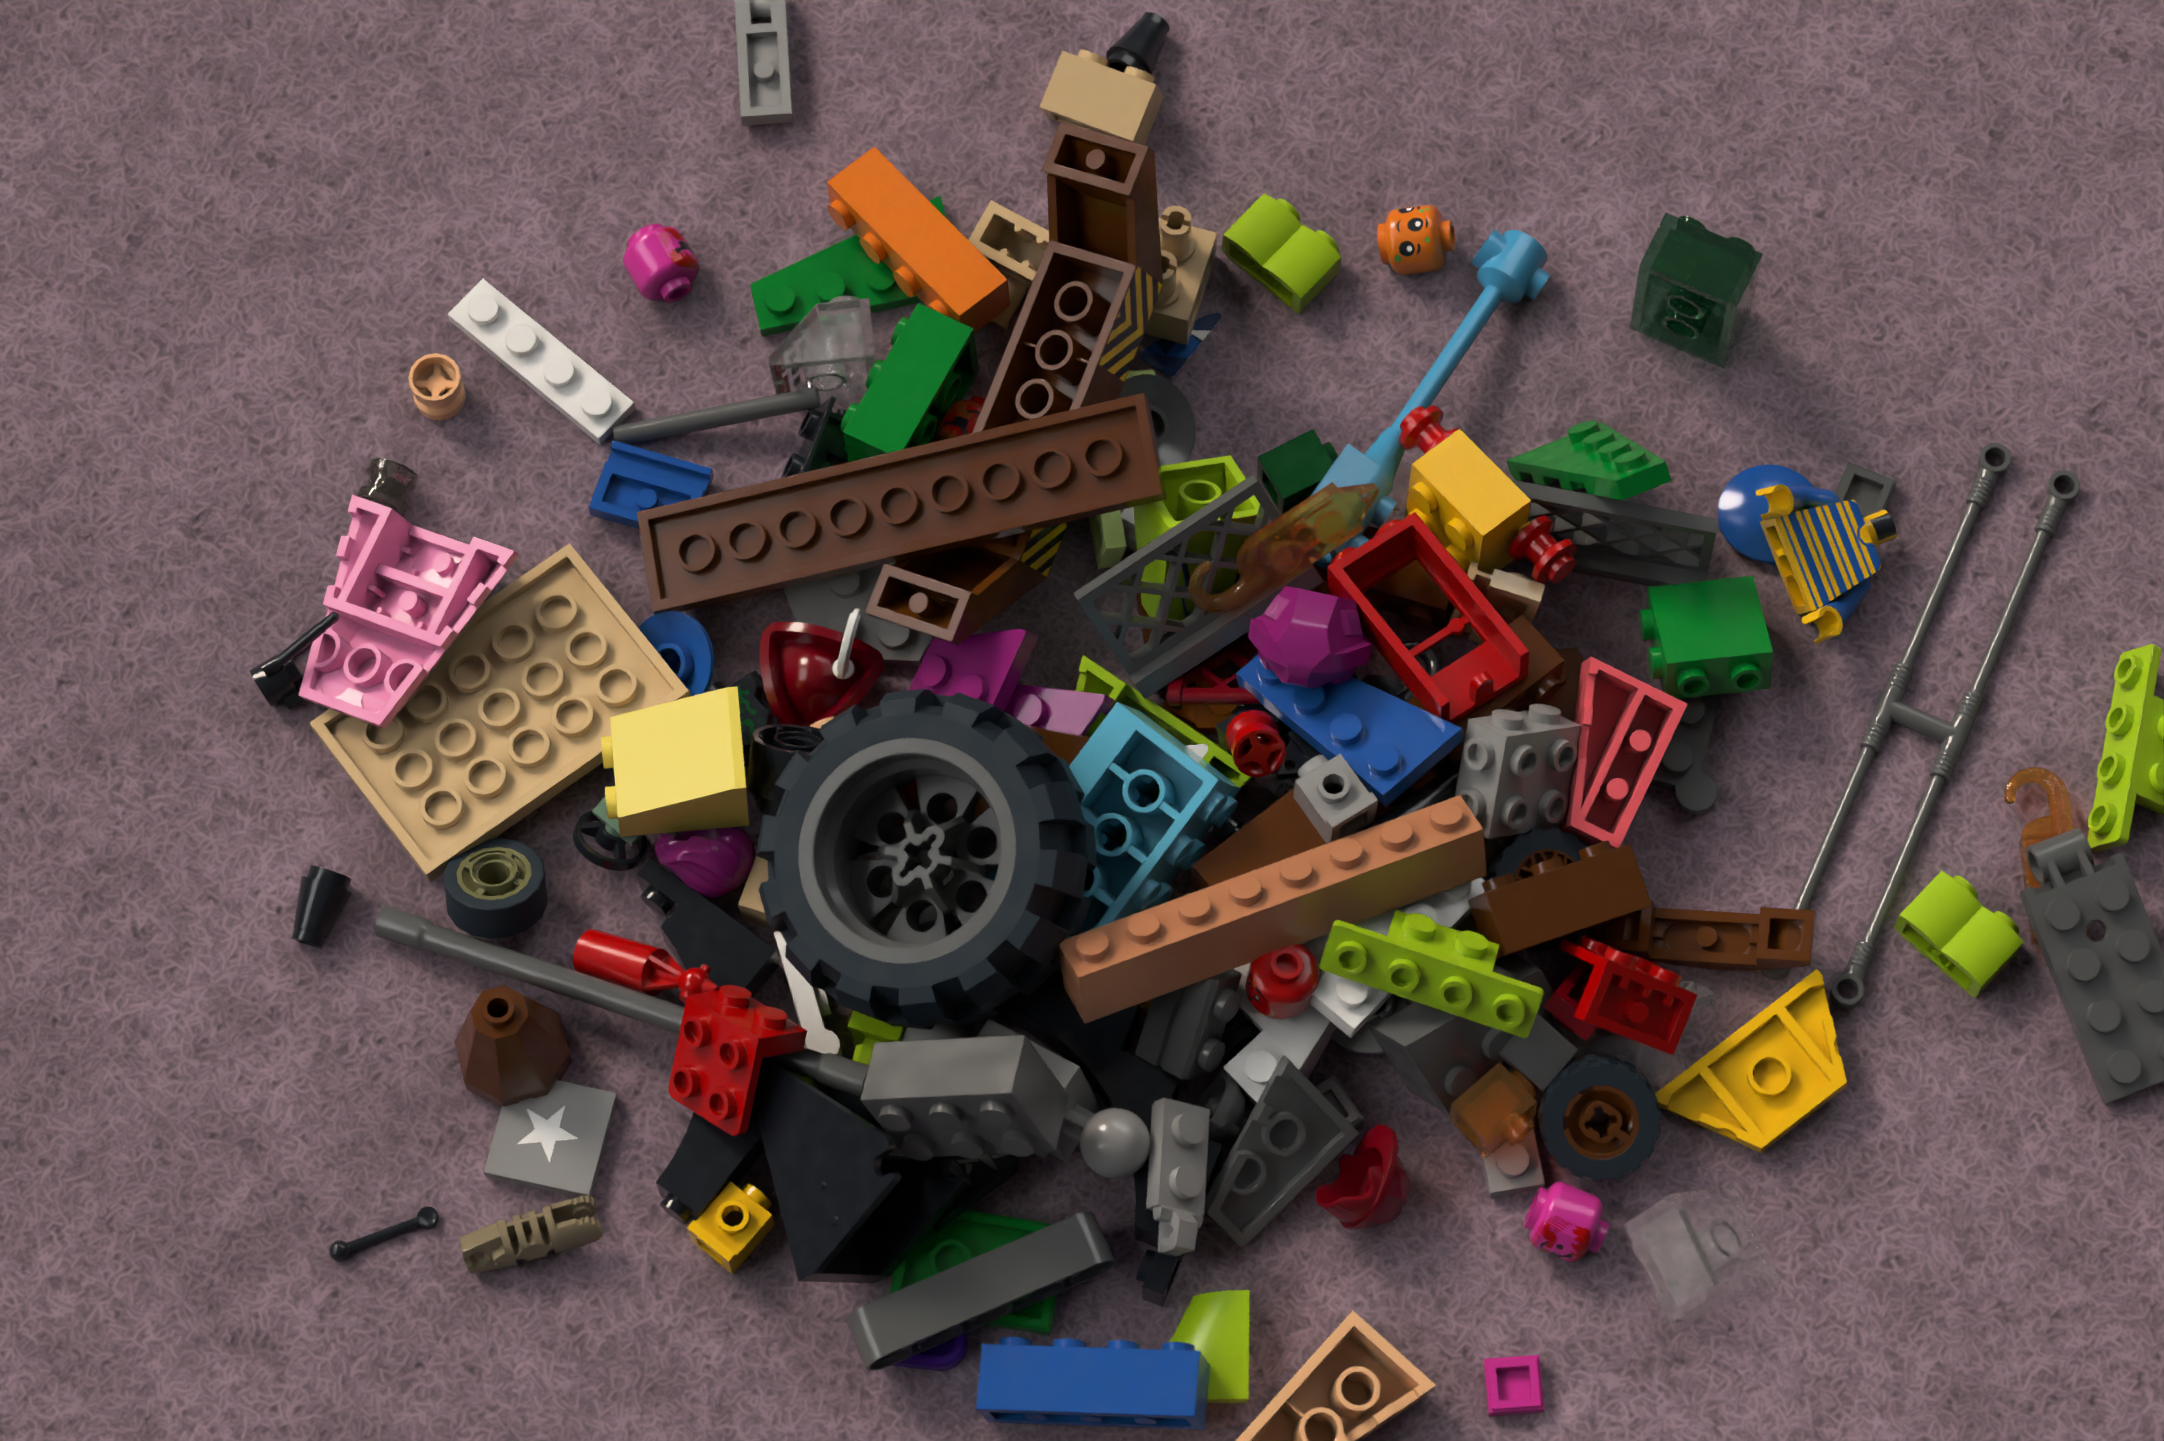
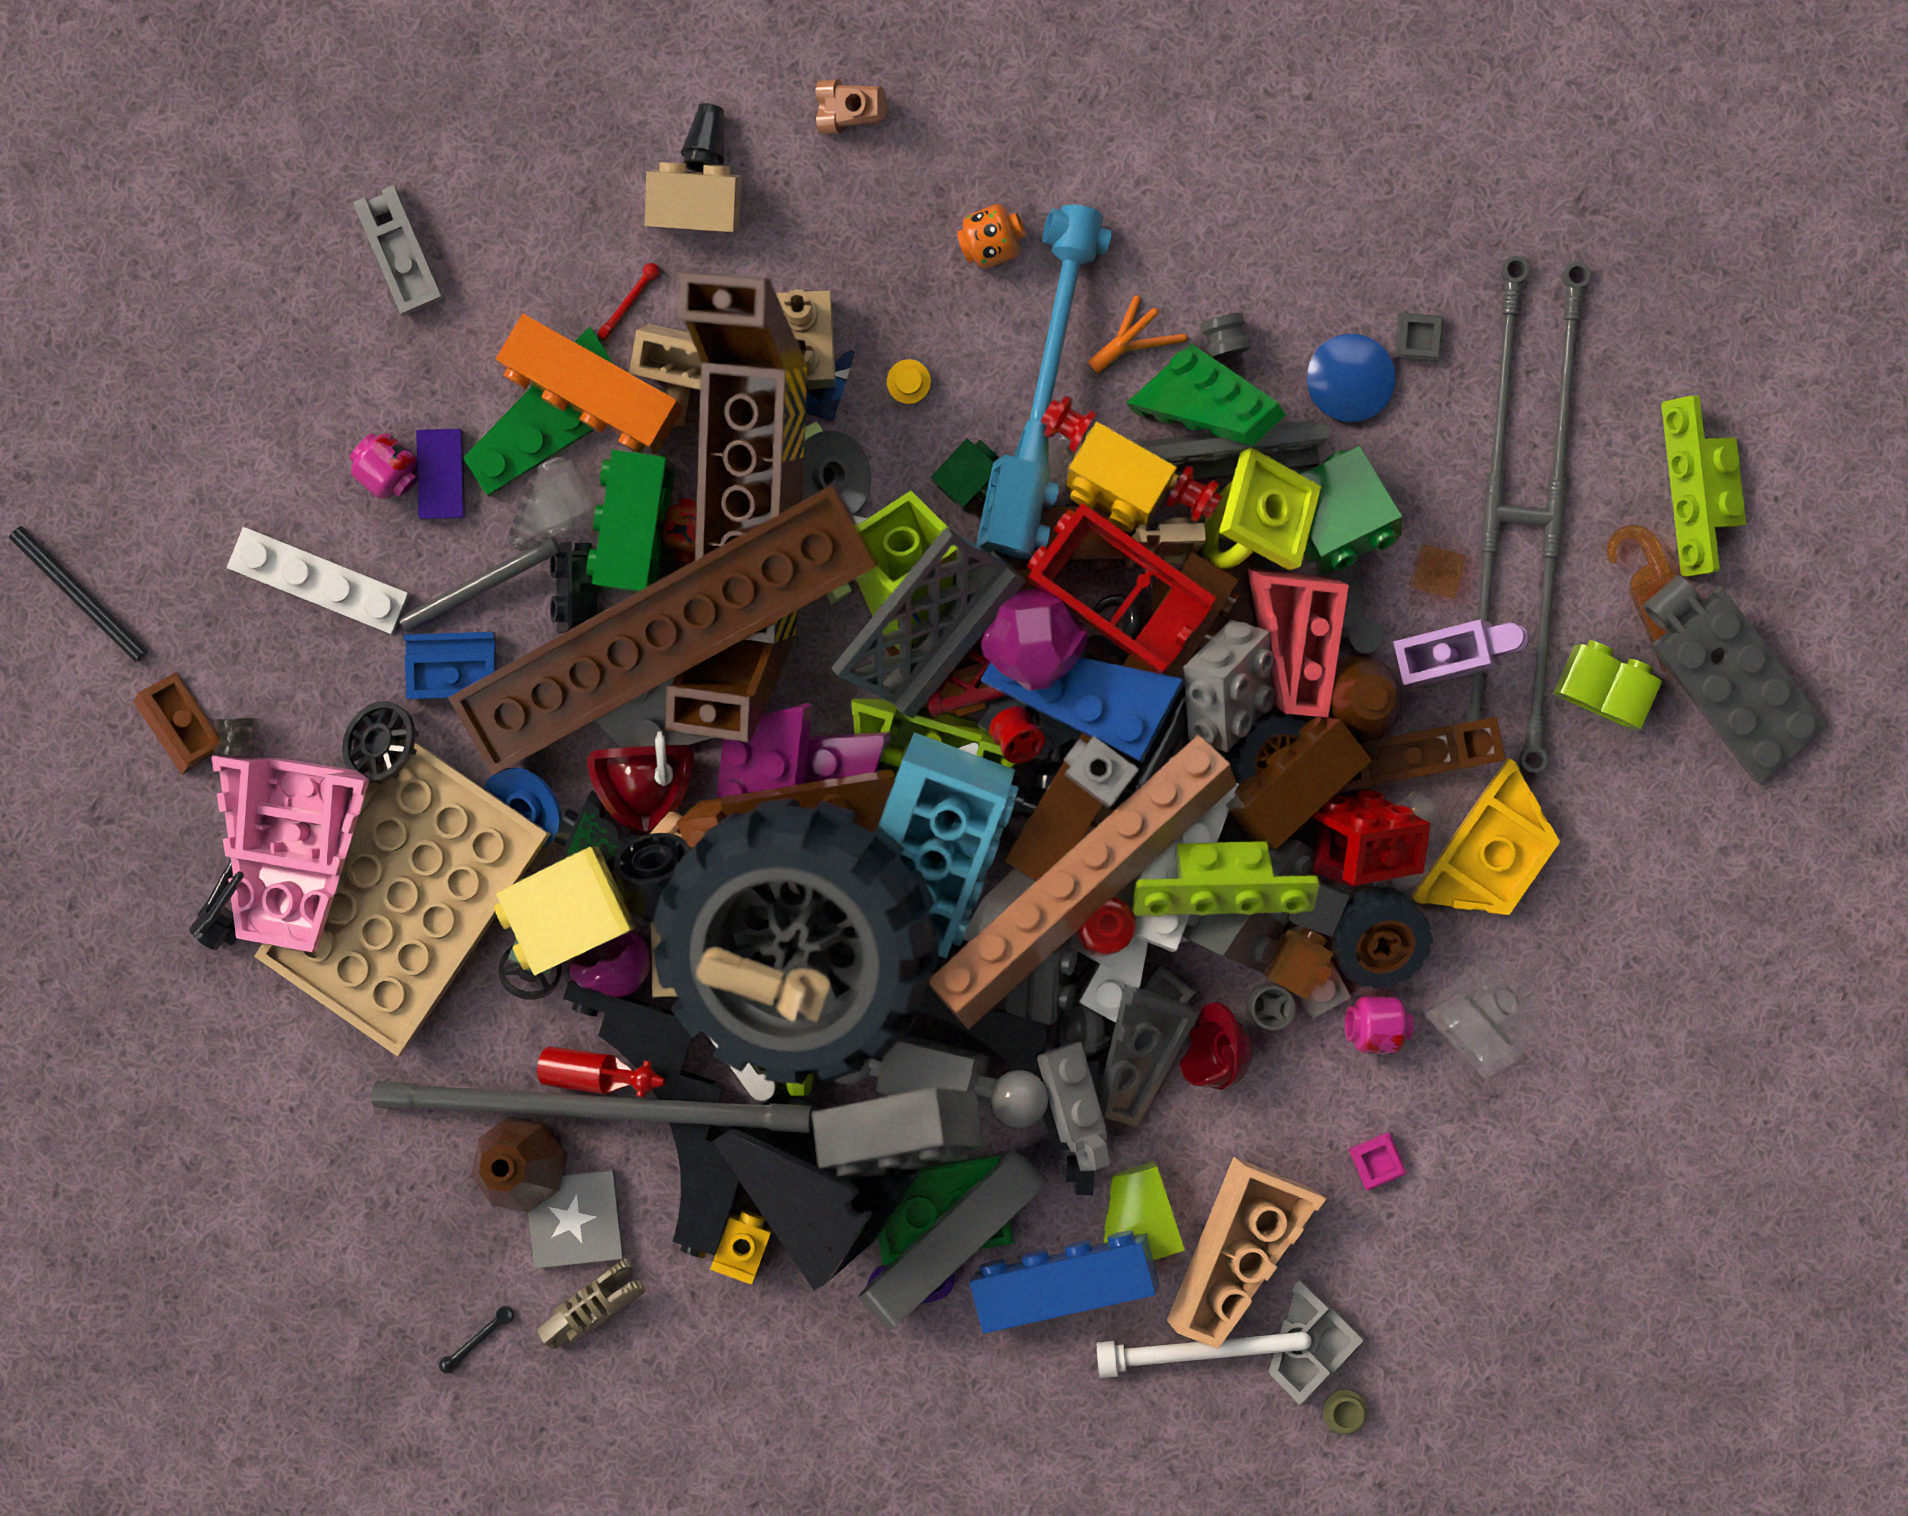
camera: 25 degrees left, 20 degrees up
(275, 293) = (78, 594): none -> black bar
(319, 905) = (322, 1098): black cone -> none
(325, 456) = (177, 722): none -> dark orange slope
(434, 375) = (234, 636): light nougat wheel -> none
(496, 889) = (469, 1062): black wheel -> none
(544, 541) = (380, 741): none -> black wheel
(718, 295) = (440, 474): none -> dark purple tile
(722, 1054) = (690, 1129): red bracket -> none
(907, 891) = (801, 991): none -> tan piece
(1027, 165) = (650, 272): none -> red hinge
(1270, 361) = (908, 381): none -> yellow plate
(1282, 252) = (886, 283): lime brick -> none
(1289, 545) = (991, 567): clear orange plate -> none
(1307, 62) = (841, 105): none -> nougat plate
(1445, 1148) = (1276, 1012): none -> dark grey wheel
(1520, 397) = (1123, 342): none -> orange plant
(1620, 595) = (1264, 511): none -> neon yellow tile
(1643, 419) = (1225, 335): none -> dark grey wheel
(1673, 852) = (1365, 697): none -> reddish brown cone
(1695, 289) = (1241, 214): clear green brick -> none
(1791, 827) = (1457, 651): none -> lavender brick
(1802, 750) = (1437, 571): none -> clear orange tile
(1823, 551) = (1410, 406): torso -> none

